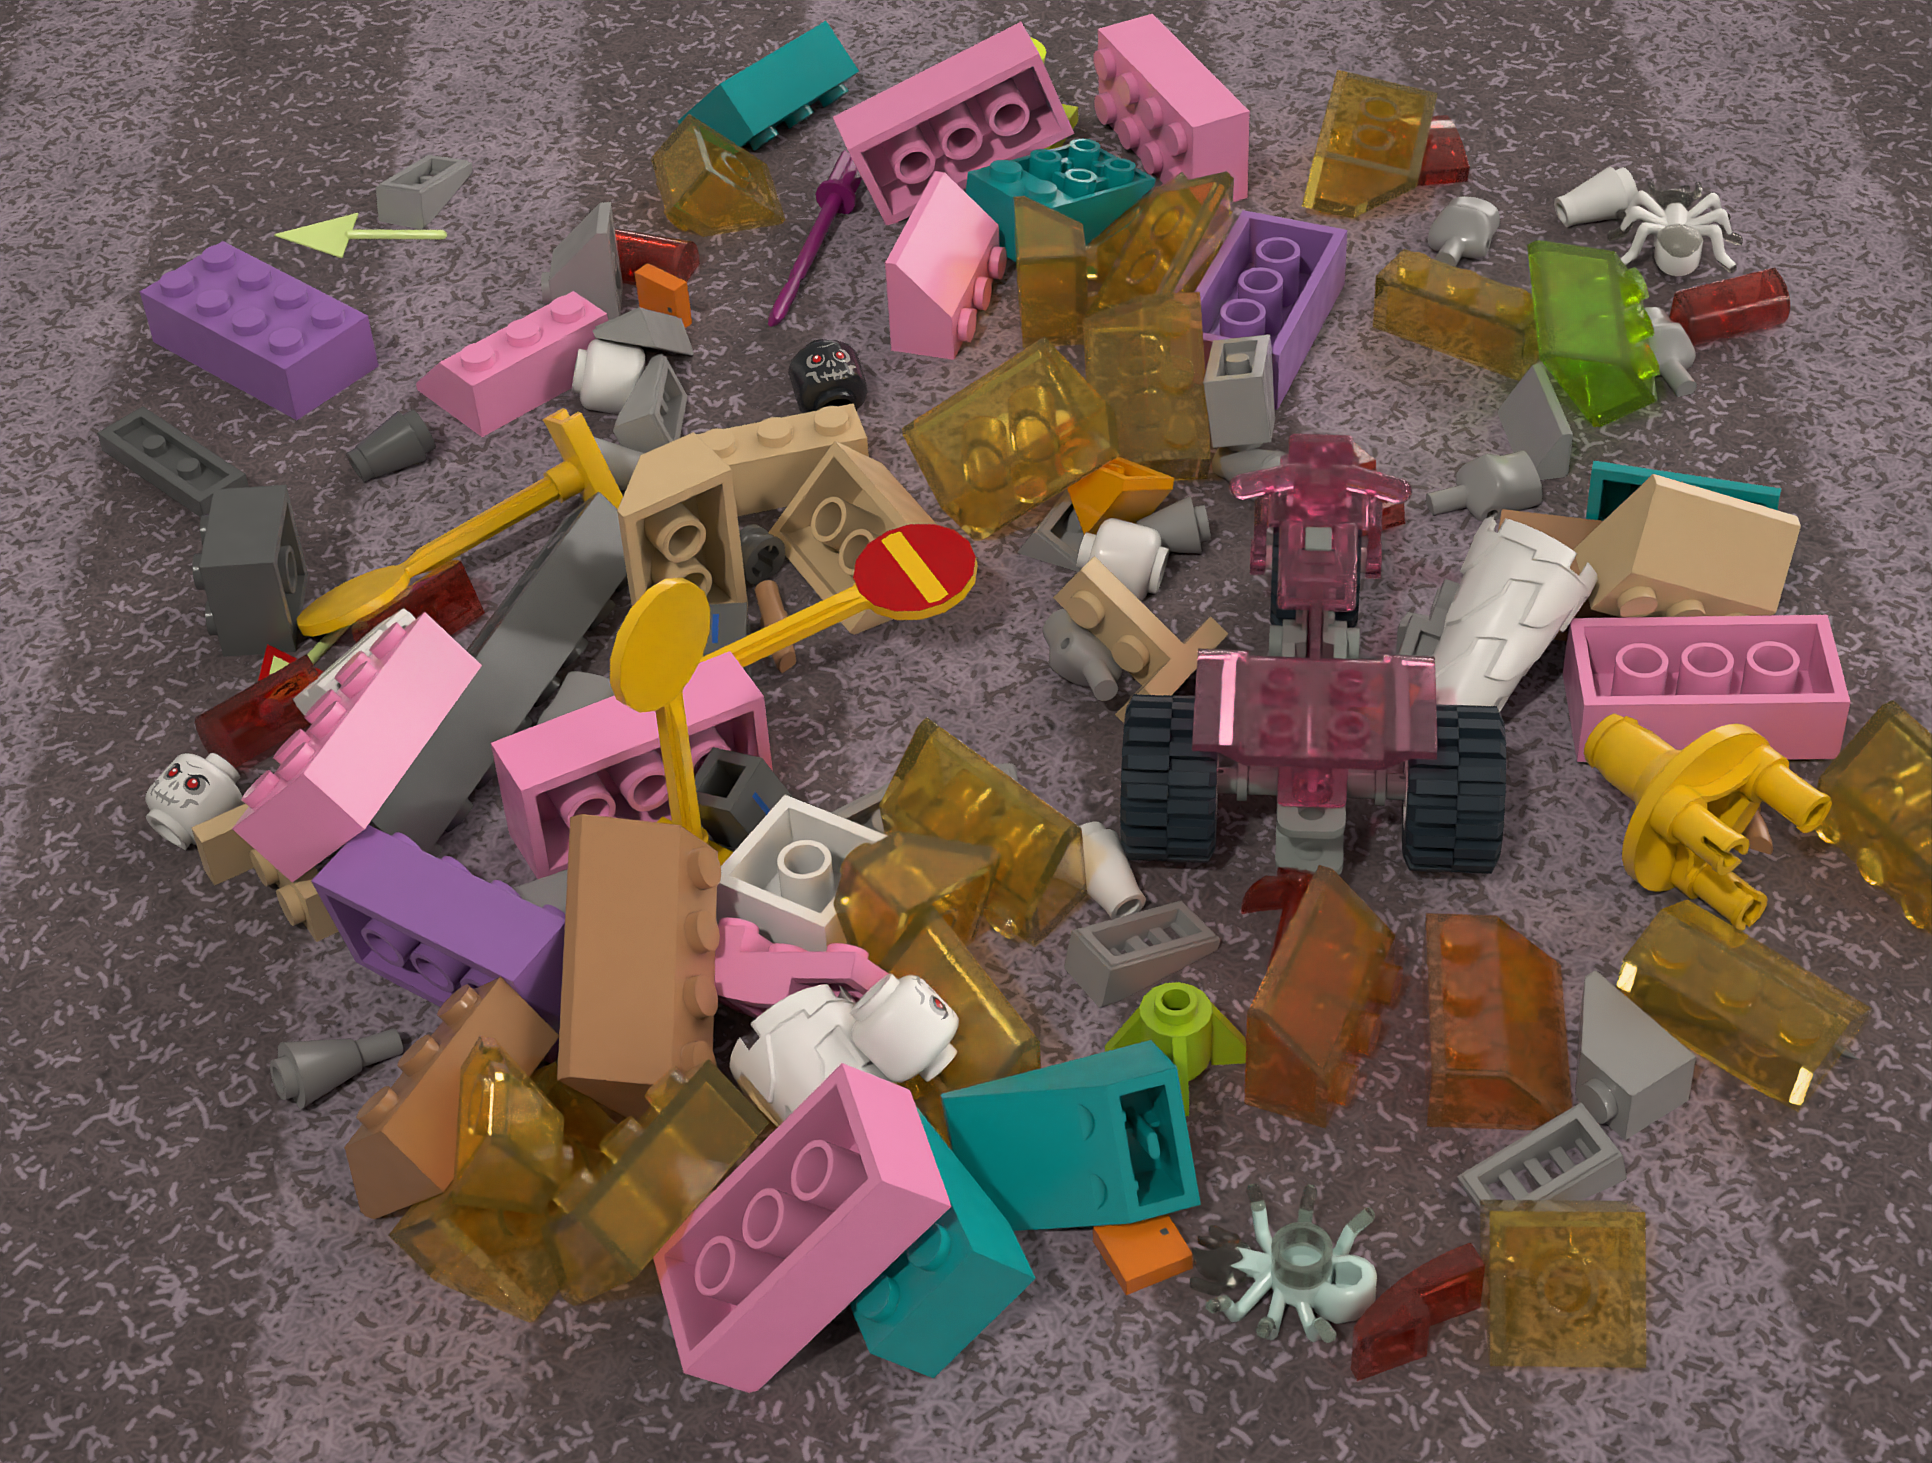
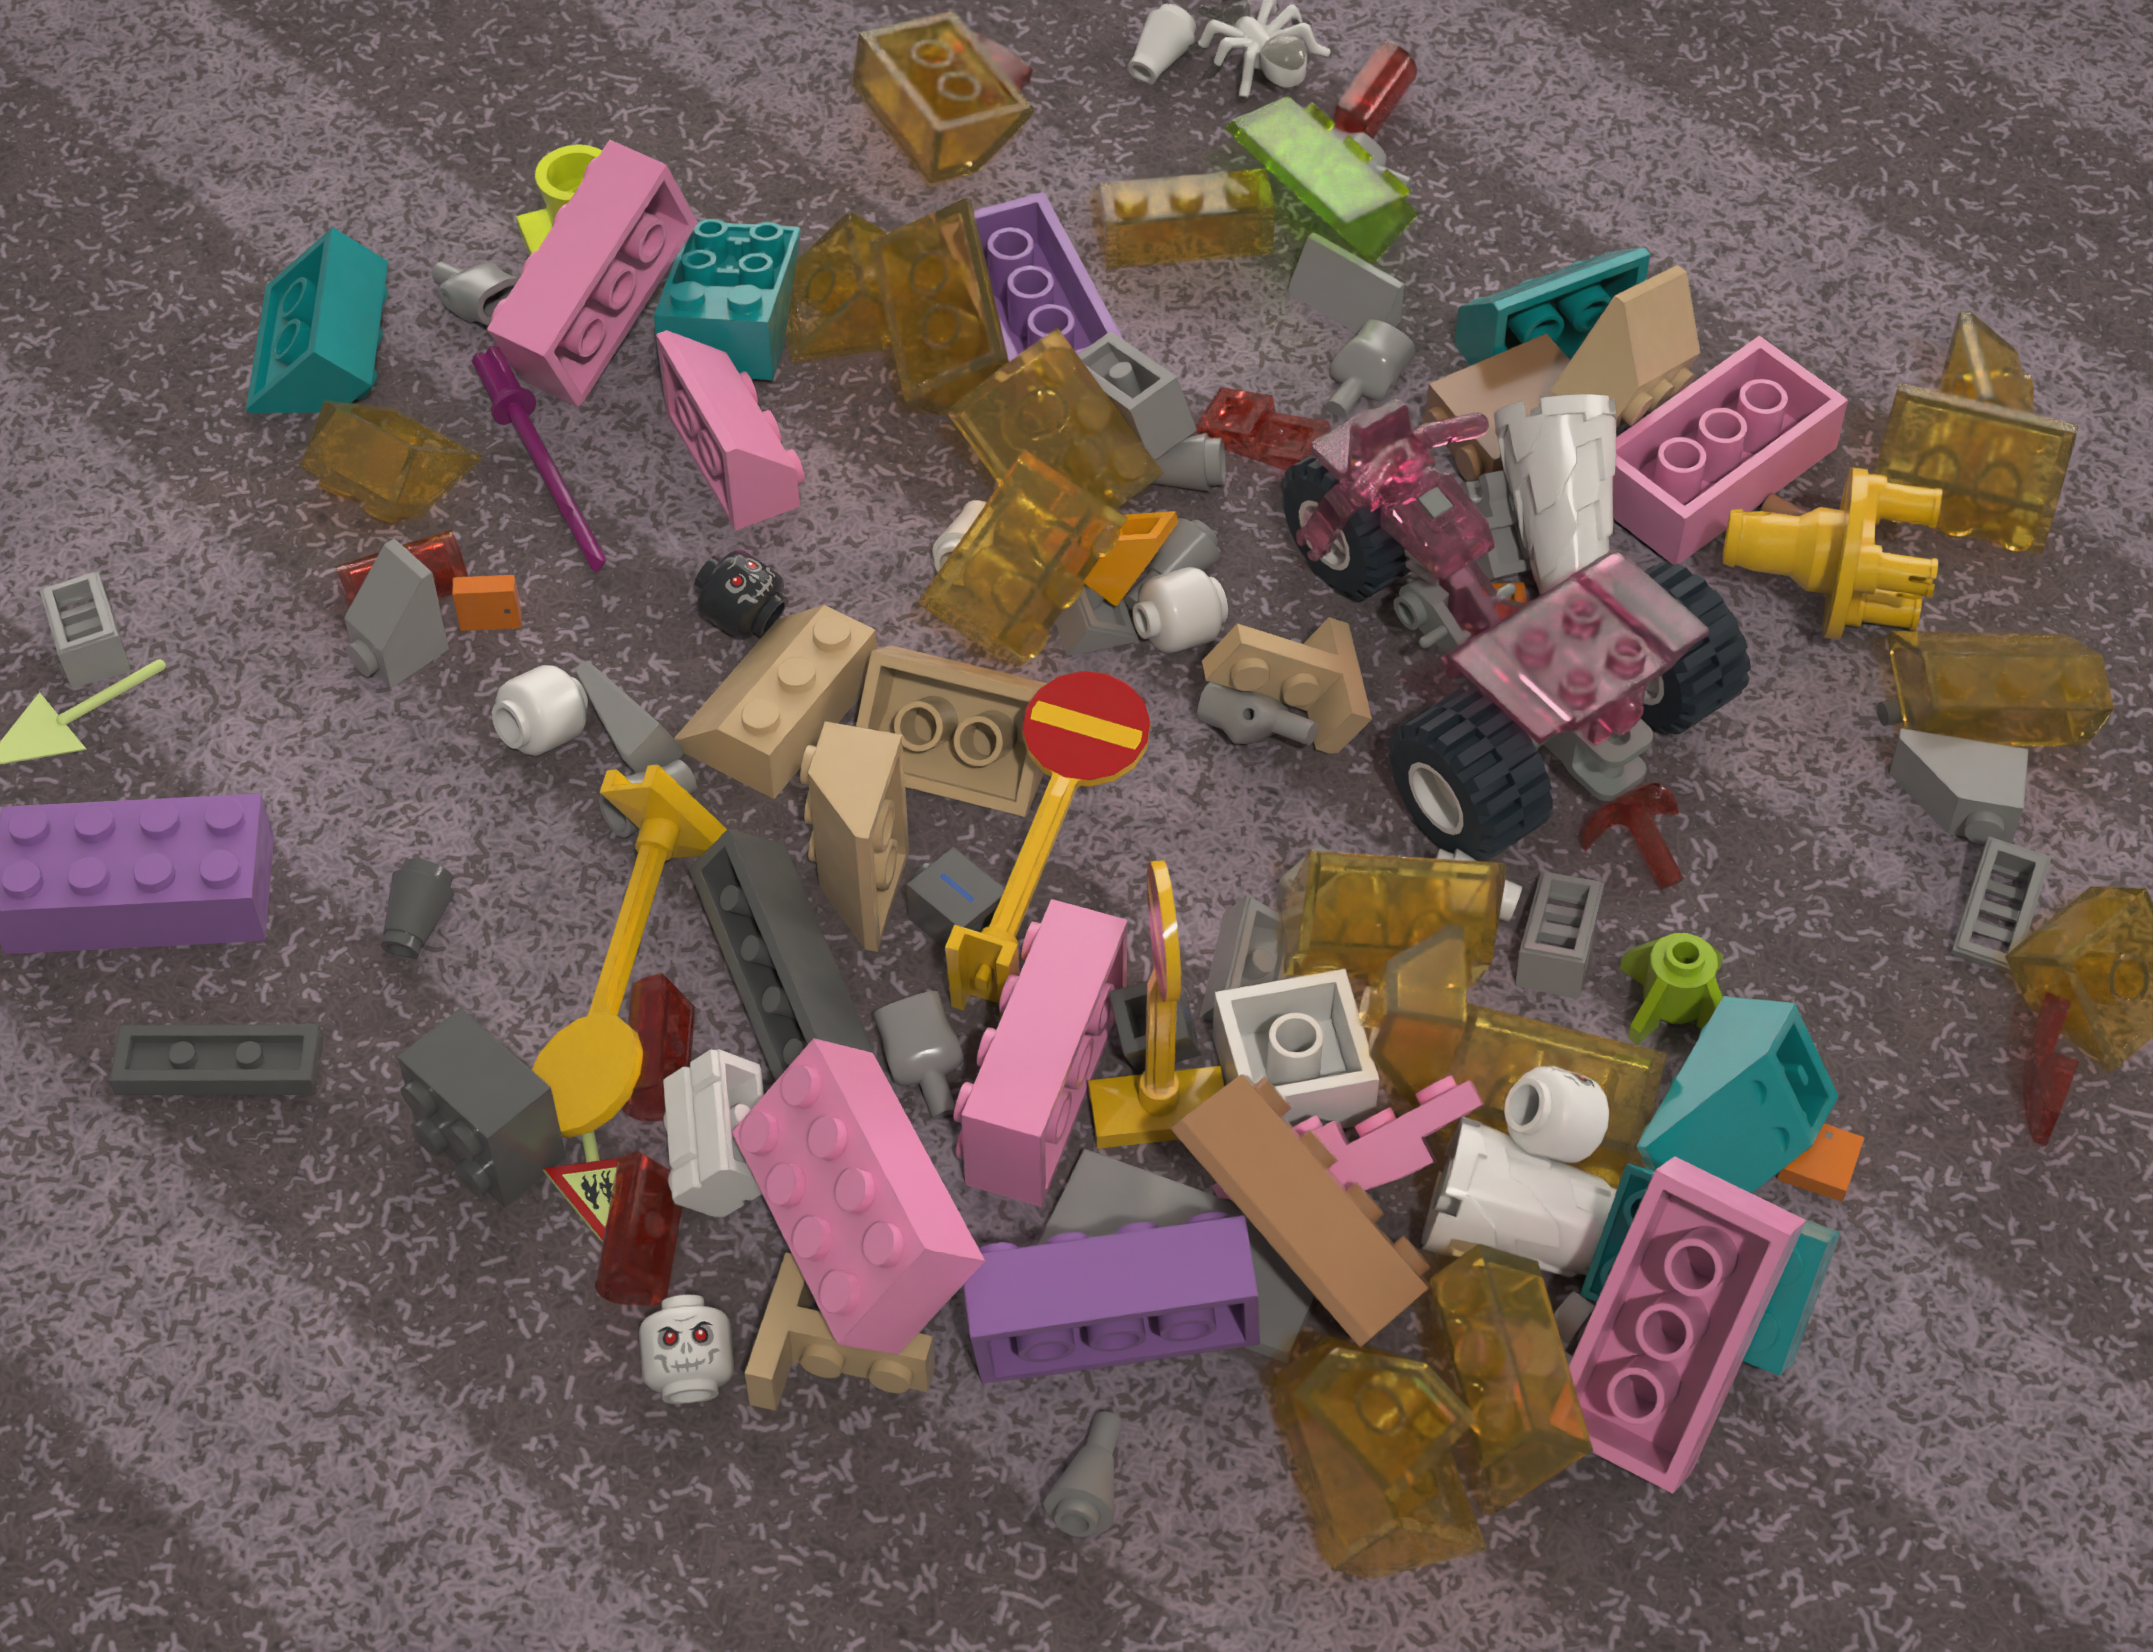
camera: 45 degrees left, 10 degrees up
(411, 1129) = (1271, 1454): medium nougat slope -> none
(515, 366) = (426, 750): bright pink slope -> none
(647, 330) = (532, 650): light grey slope -> none
(772, 611) = (943, 839): medium nougat piece -> none
(1051, 274) = (829, 377): clear yellow slope -> none
(1169, 105) = (748, 149): bright pink brick -> none
(1296, 1265) = (1951, 1095): animal -> none
(1320, 1004) = (1750, 889): clear orange slope -> none
(1463, 229) = (1091, 136): light grey piece -> none
(1491, 1026) = (1855, 825): clear orange slope -> none

